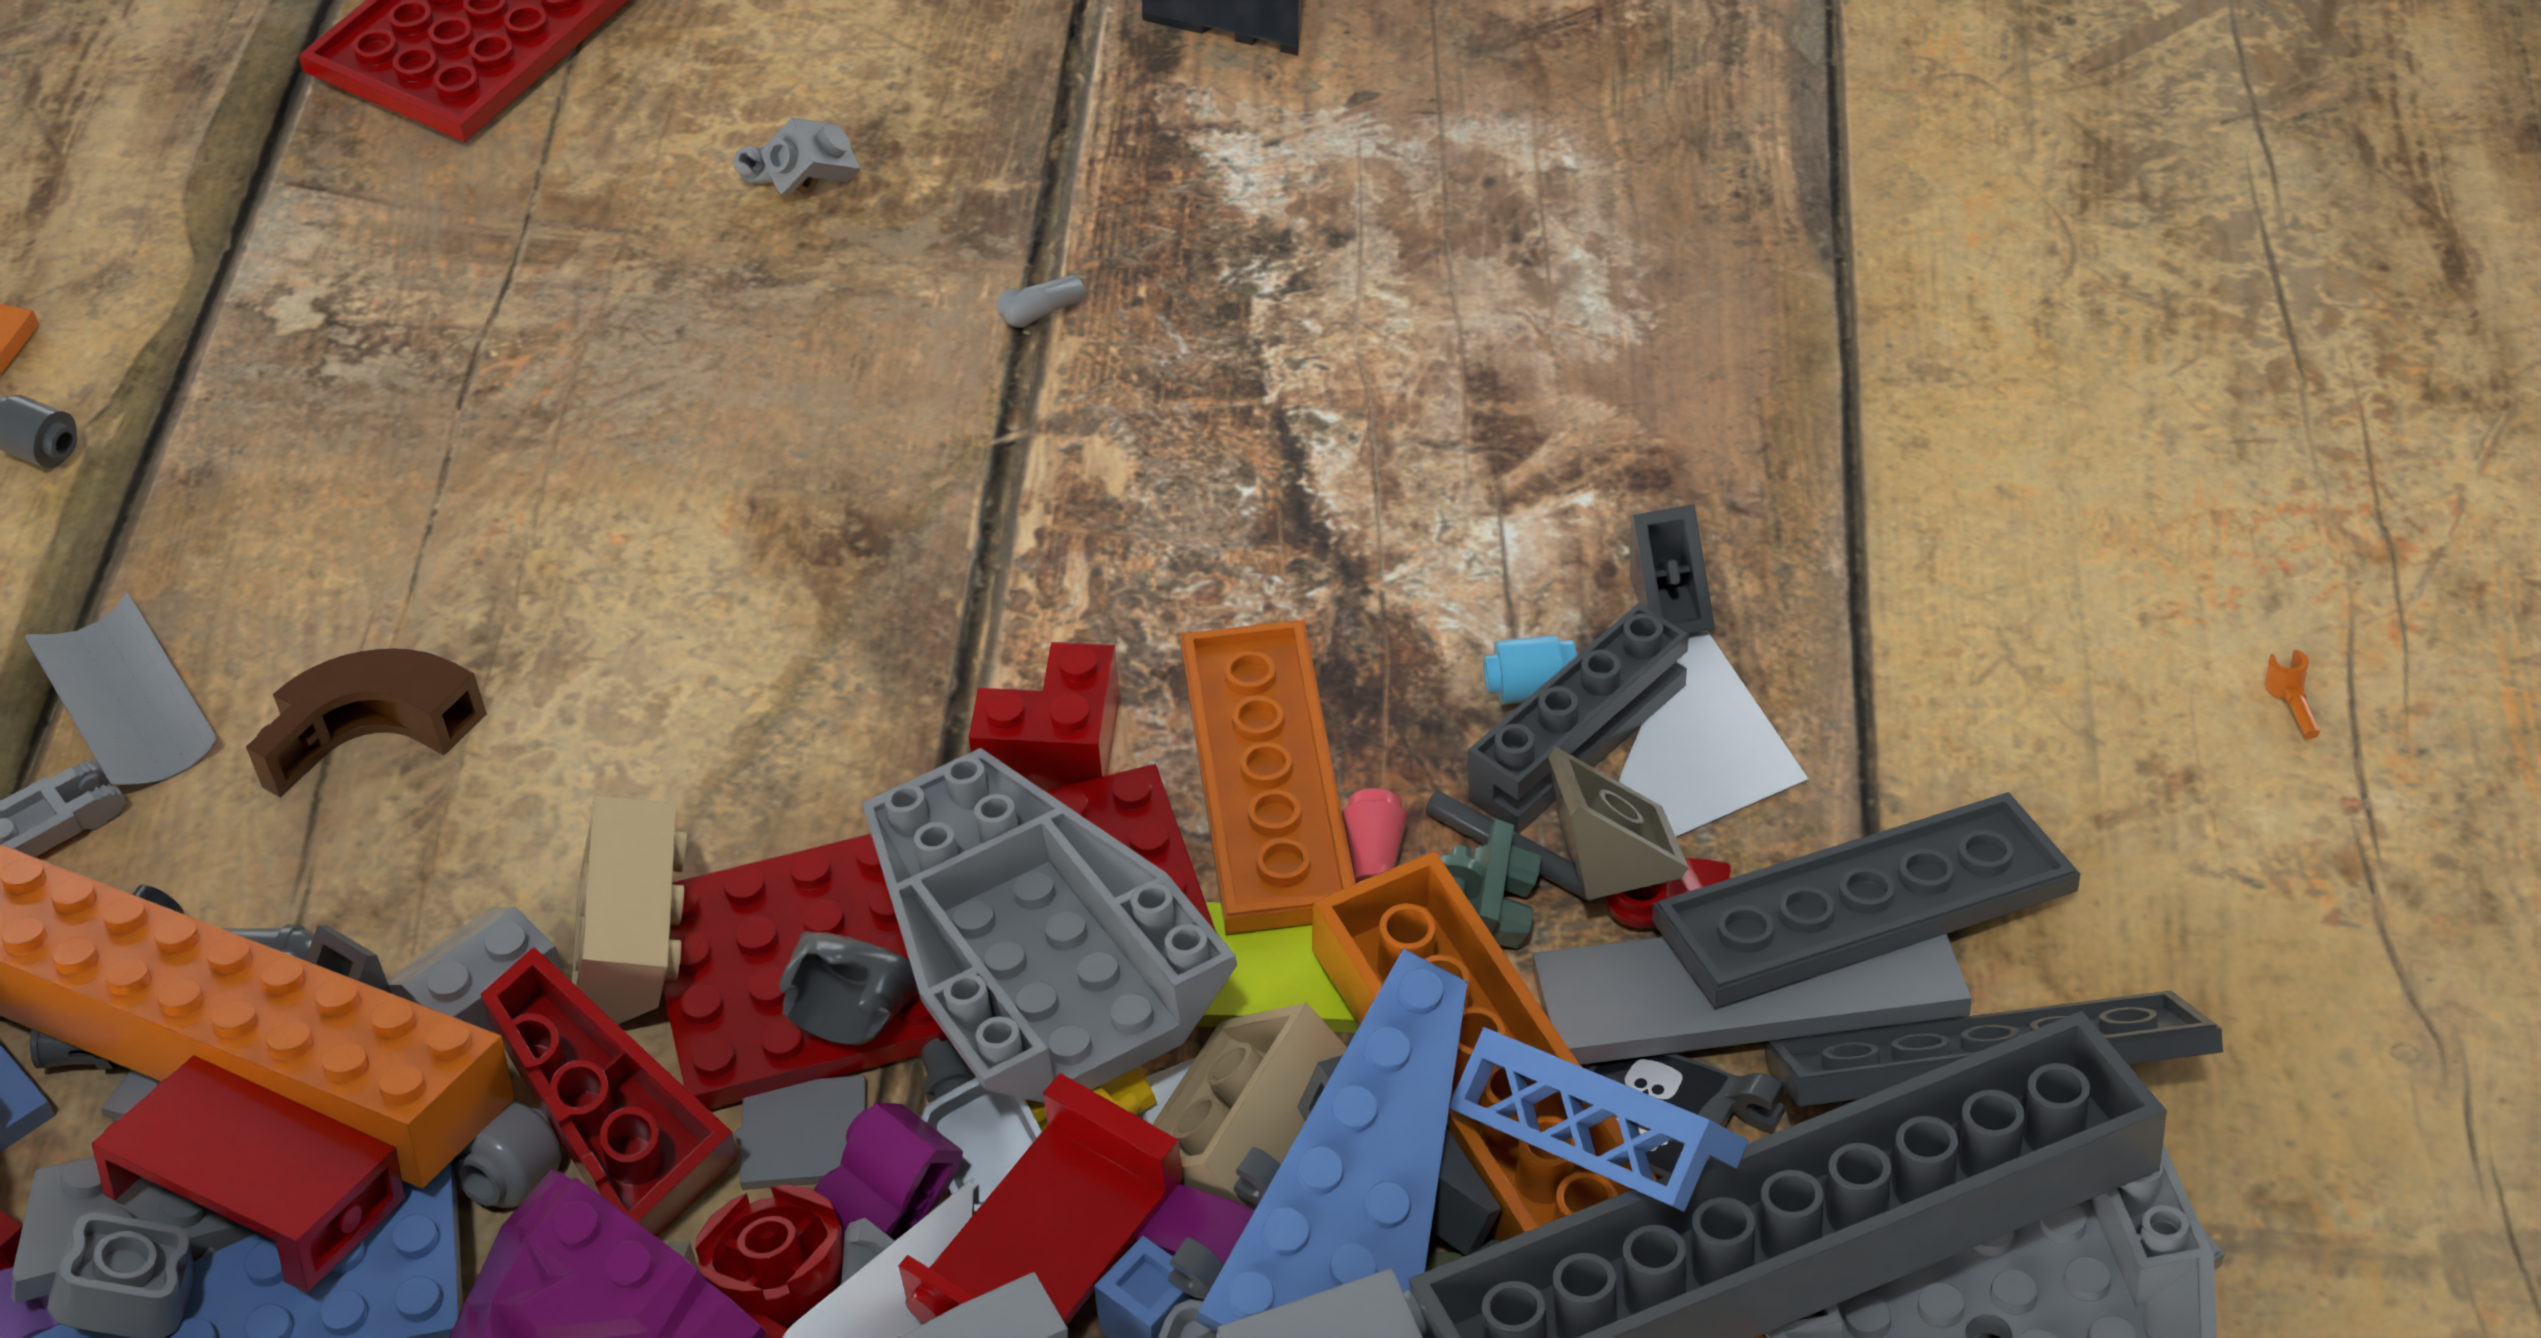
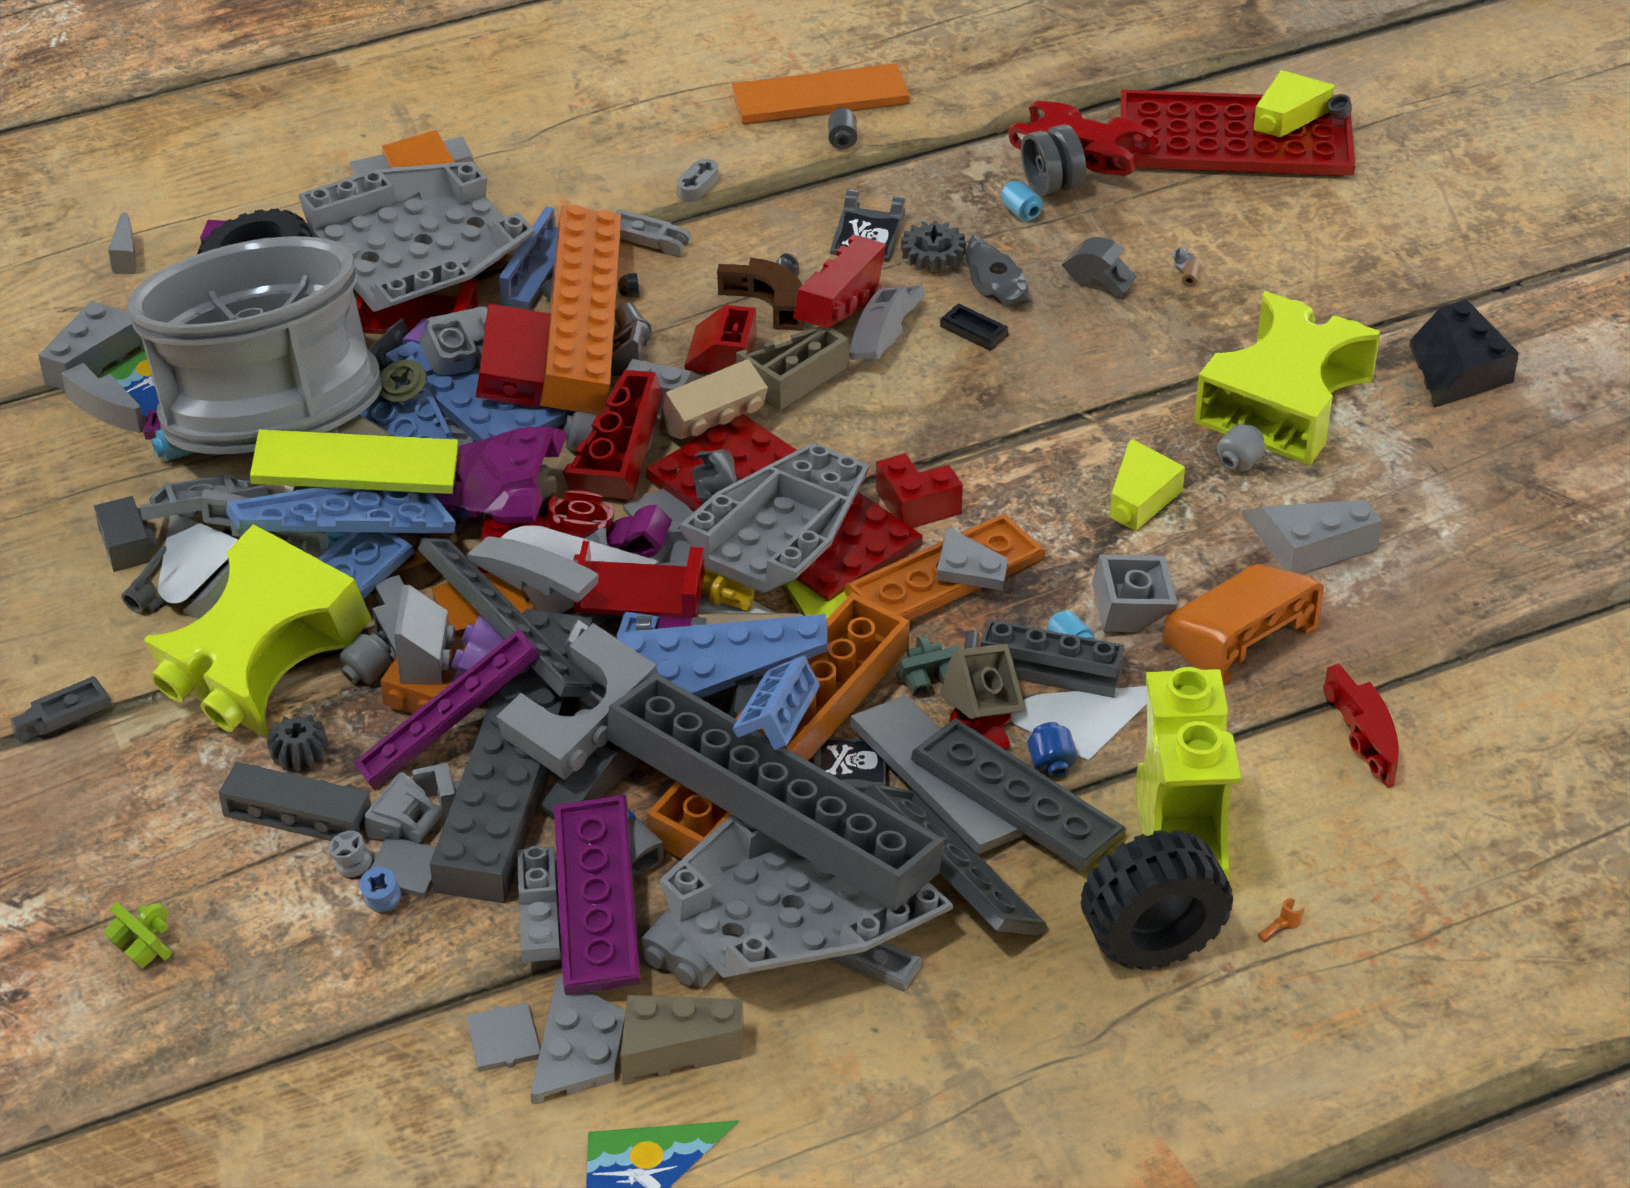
camera: 60 degrees right, 5 degrees down
(125, 697) = (728, 225): light grey sticker -> none
(304, 654) = (790, 262): none -> dark grey hinge
(318, 518) = (869, 223): none -> flag
(333, 166) = (1101, 142): none -> red piece
(409, 196) = (1053, 160): none -> dark grey wheel
(445, 285) = (1021, 200): none -> medium azure brick
(446, 832) = (720, 337): none -> red slope
(452, 442) = (933, 246): none -> dark grey gear
(488, 587) = (842, 284): none -> red wedge
(550, 394) = (1009, 286): none -> dark grey piece
(595, 584) = (882, 321): none -> light grey slope
(598, 748) = (799, 364): none -> dark tan wedge
(686, 481) = (974, 326): none -> black tile
(689, 252) = (1100, 259): none -> dark grey brick
(808, 150) = (1199, 270): light grey bracket -> none
(1039, 300) = (1168, 383): light grey arm -> none
(1166, 174) = (1286, 377): none -> neon yellow brick
(1244, 434) = (1144, 485): none -> neon yellow slope
(1253, 282) = (1241, 447): none -> light grey head
(1288, 723) = (970, 563): none -> light grey wing
(1374, 831) = (933, 619): coral cone -> none
(1482, 287) = (1316, 533): none -> light grey wedge
(1500, 547) = (1132, 591): none -> light grey slope
(1643, 435) = (1239, 612): none -> orange windscreen
(1670, 567) = (1171, 650): dark grey slope -> none
(1787, 808) = (1052, 749): none -> blue head
(1959, 404) = (1372, 727): none -> red slope
(2076, 659) = (1188, 758): none -> neon yellow brick
(2289, 800) = (1156, 899): none -> black tyre

